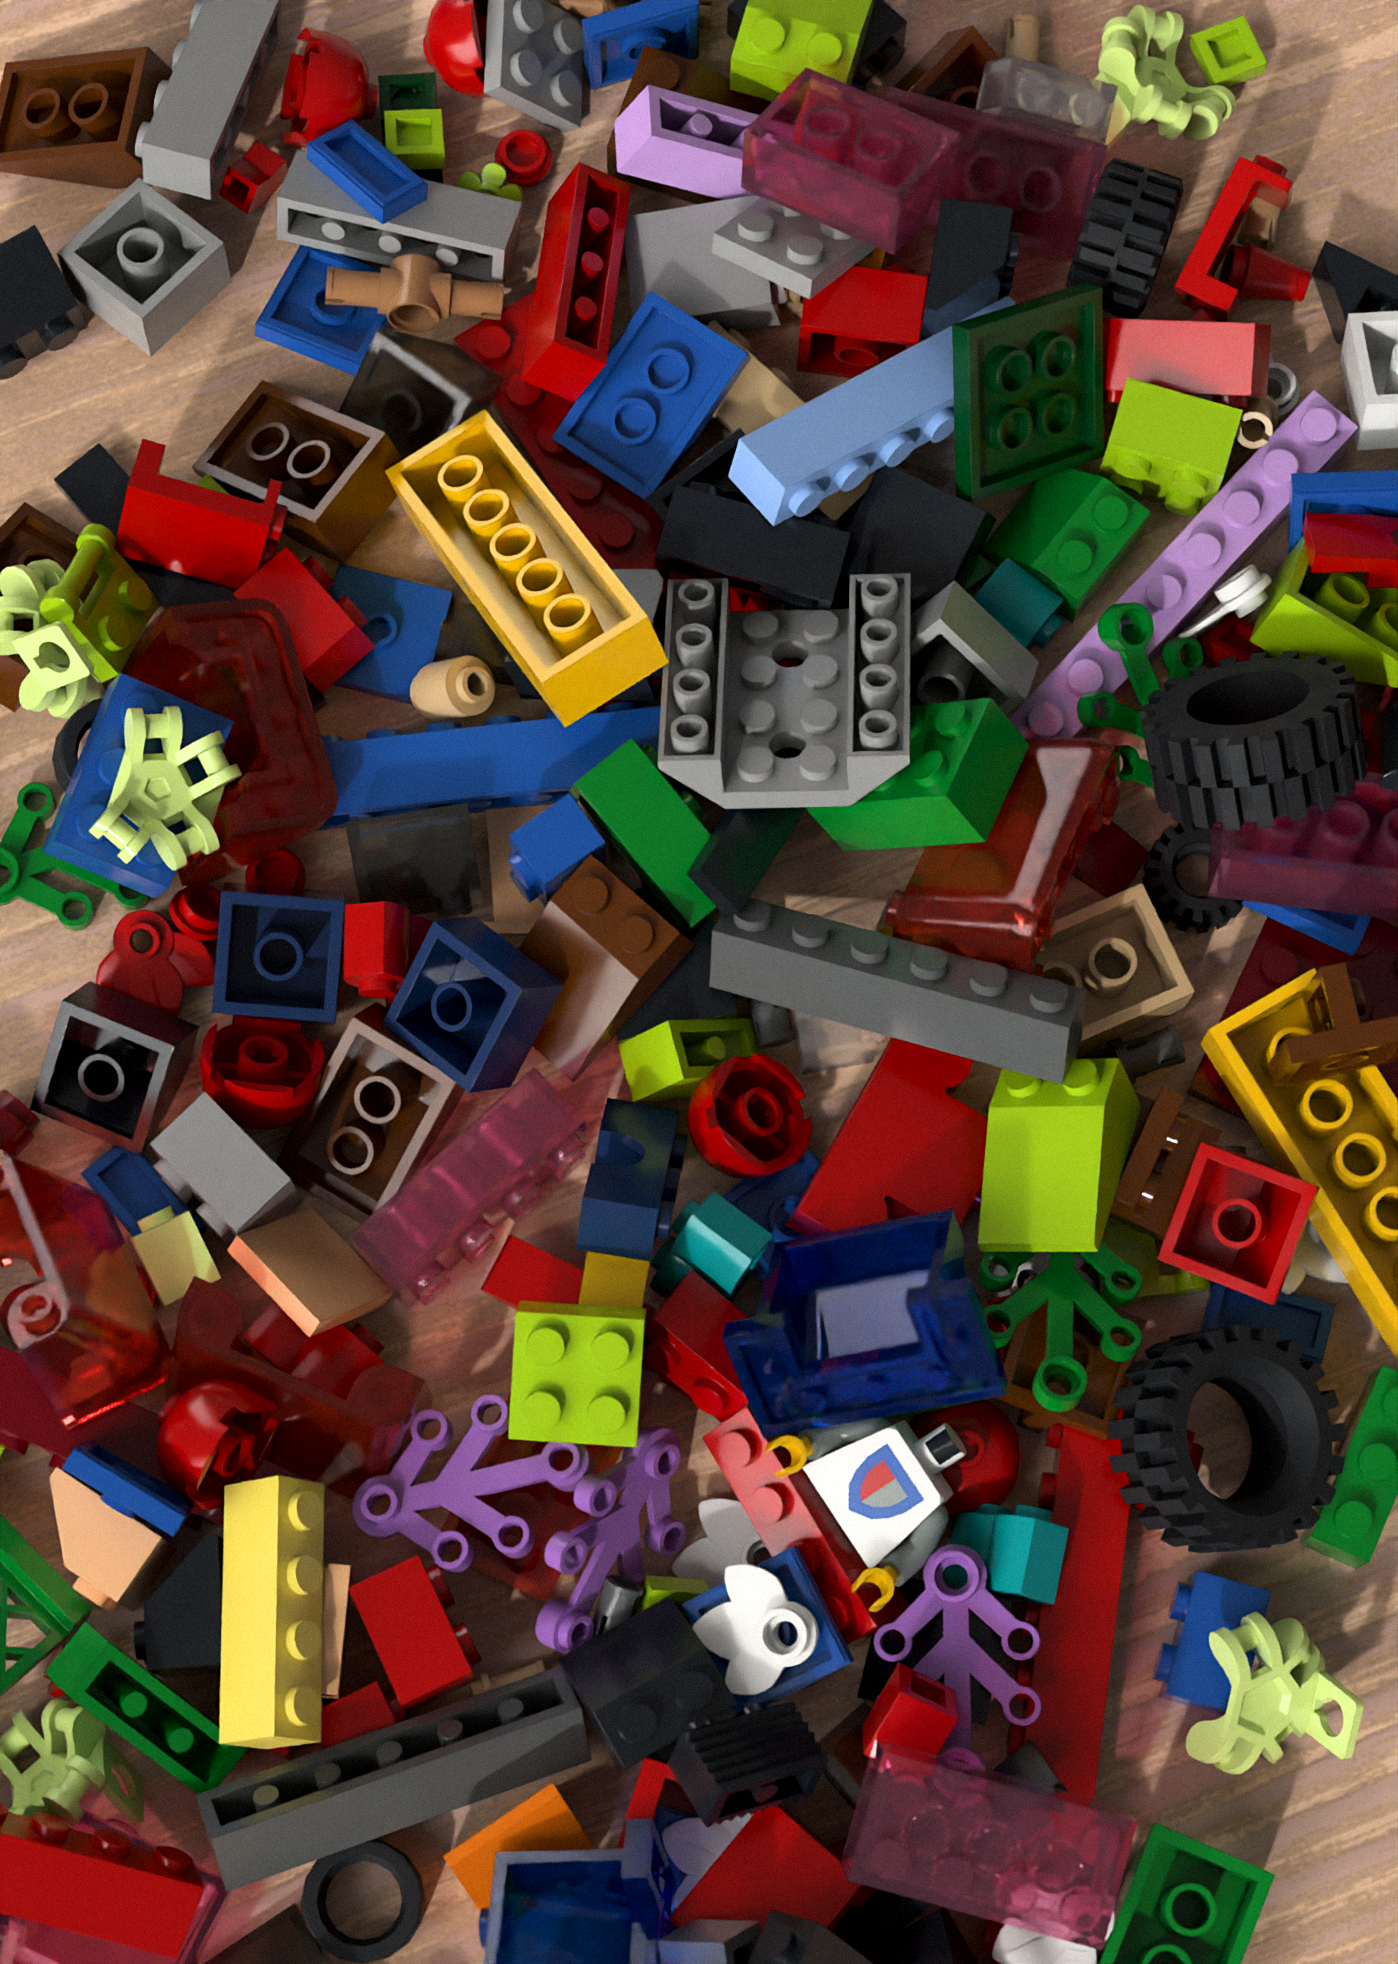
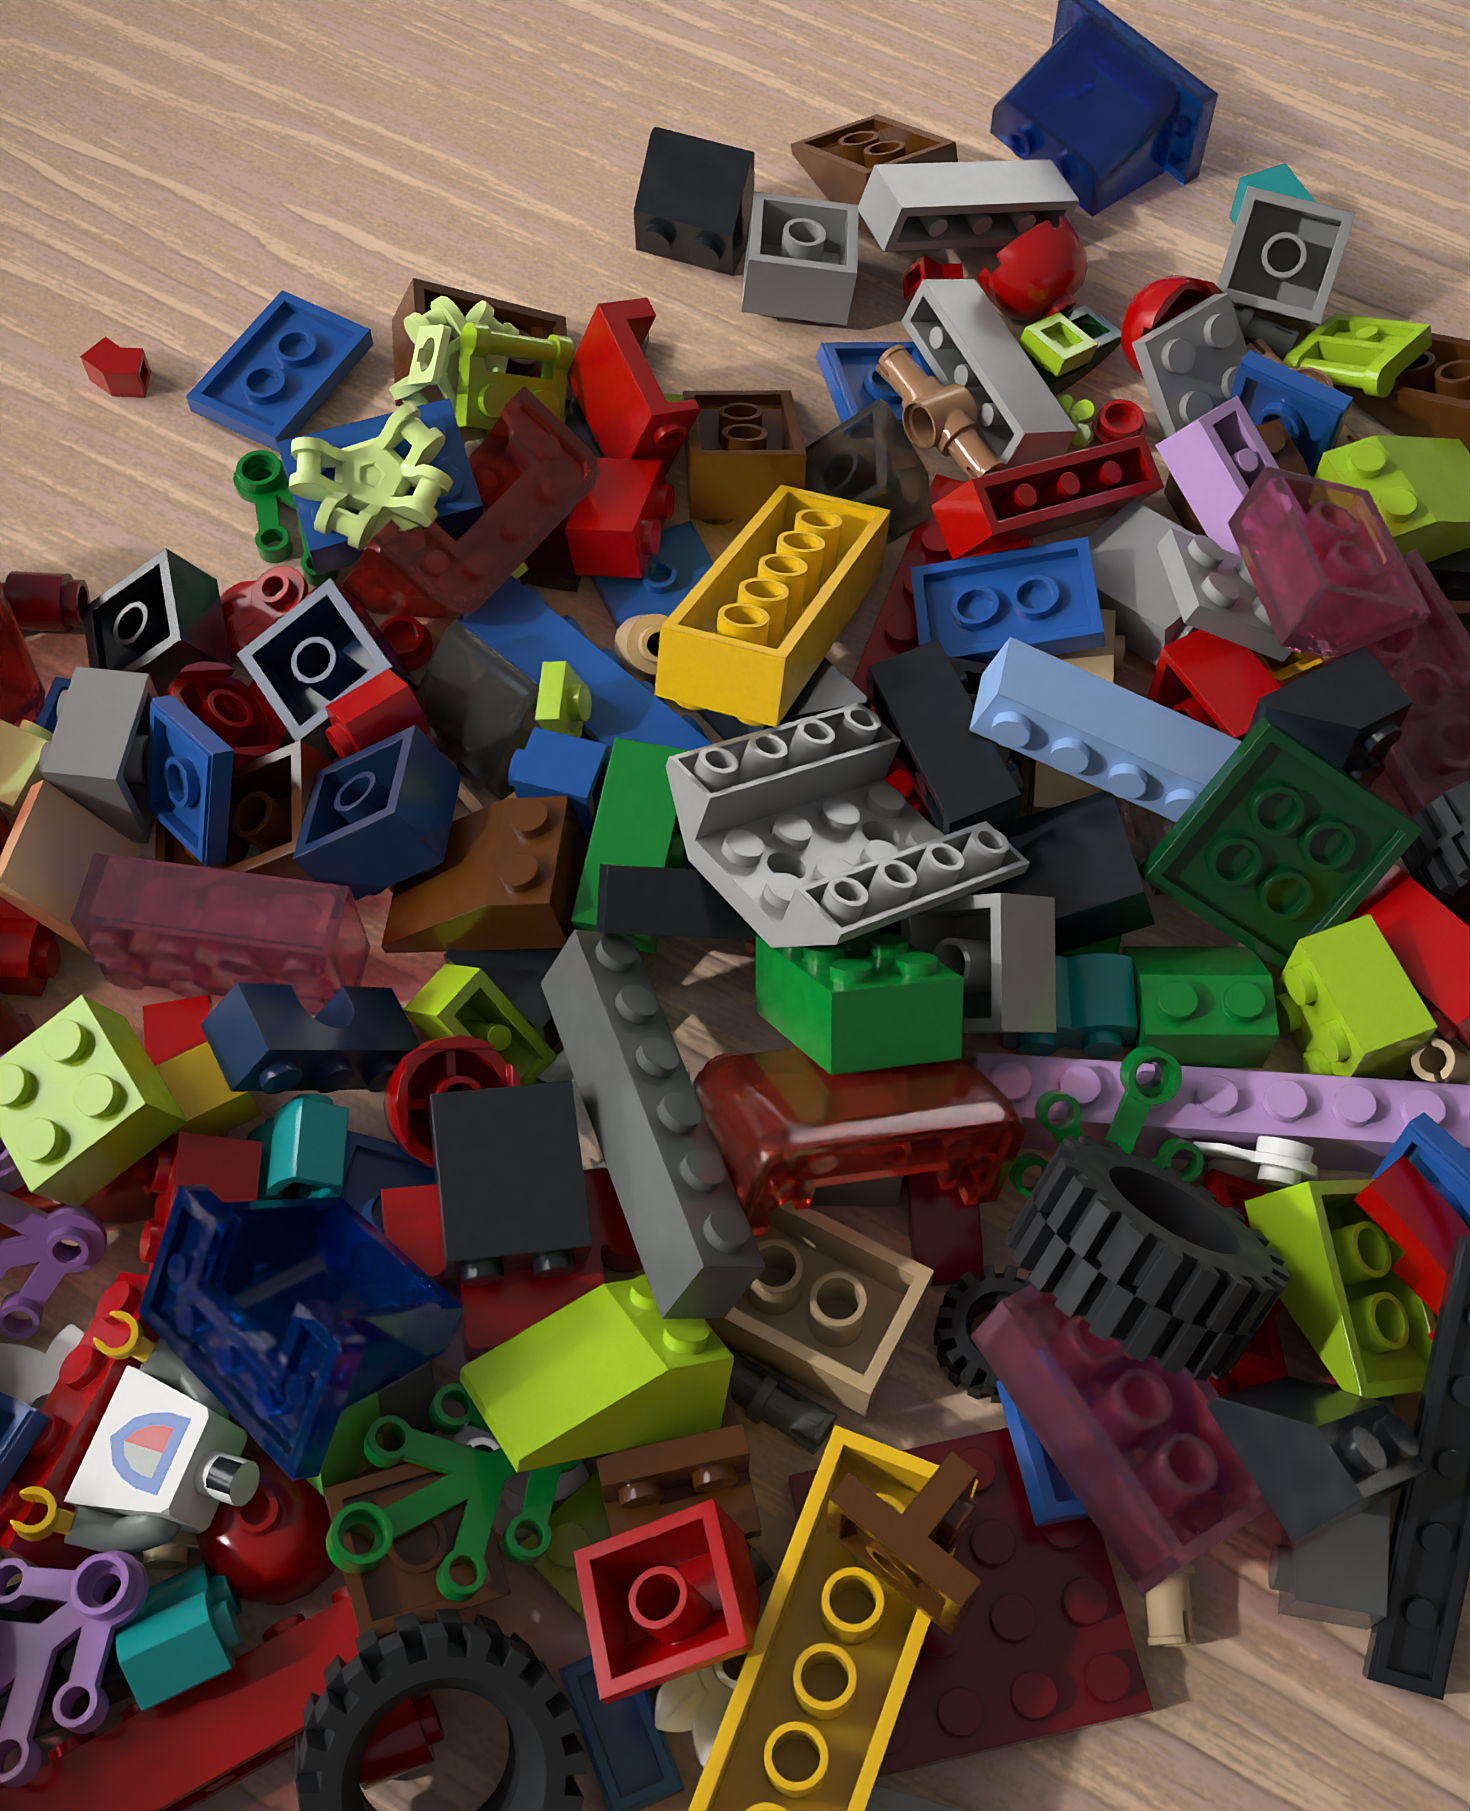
camera: 55 degrees right, 15 degrees down
(319, 1124) = (189, 779): none -> blue tile
(367, 171) = (999, 320): blue tile -> none
(485, 794) = (562, 699): none -> lime plate
(867, 1117) = (509, 1182): none -> black brick

